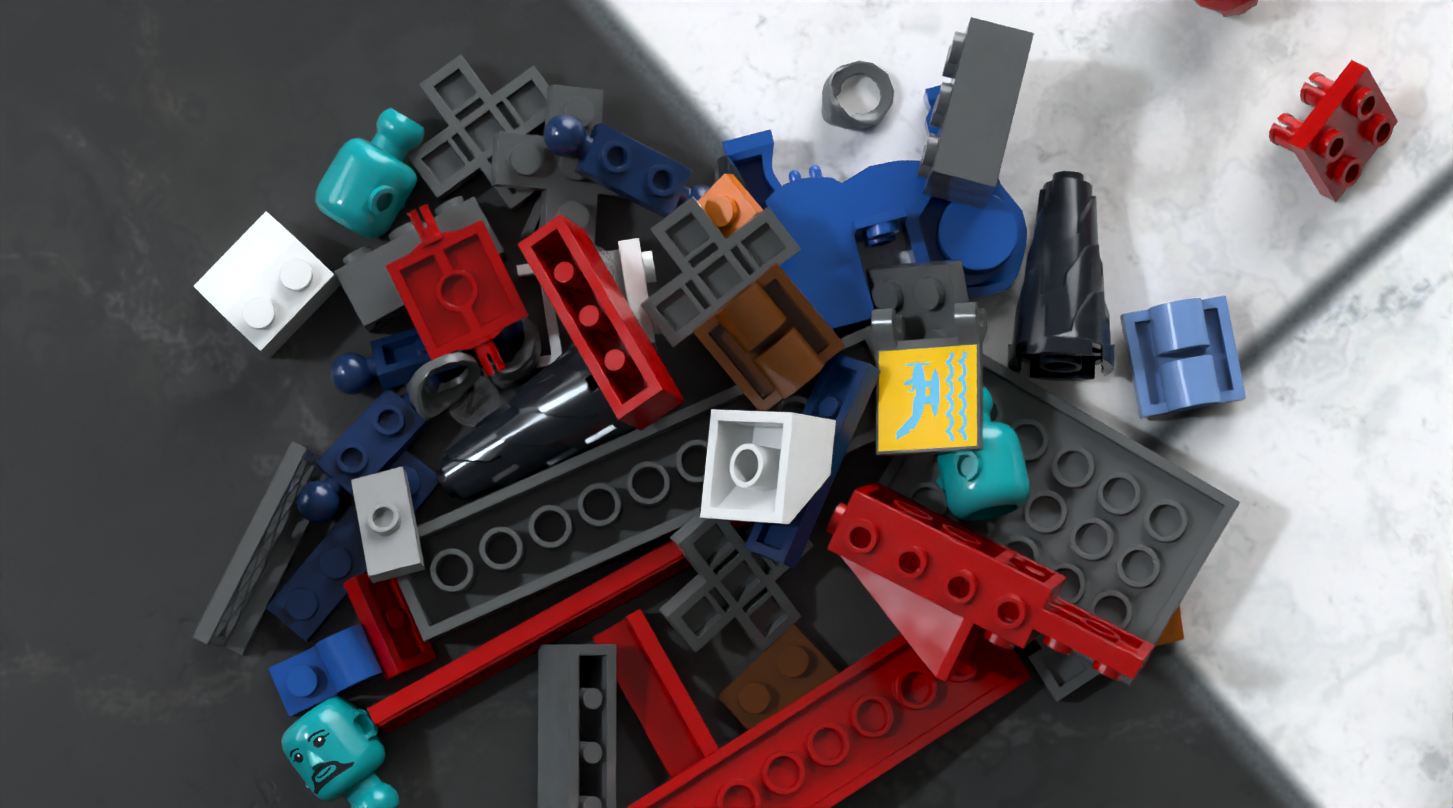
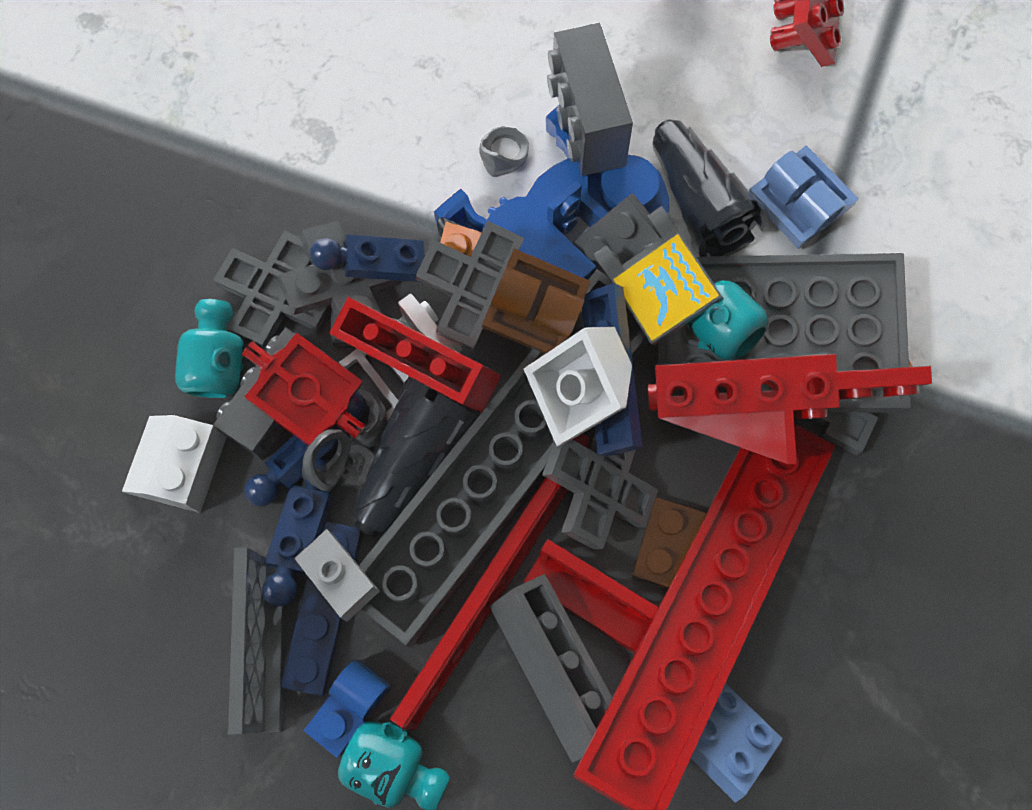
camera: 25 degrees left, 10 degrees down
(389, 625) = (375, 648): red plate -> none

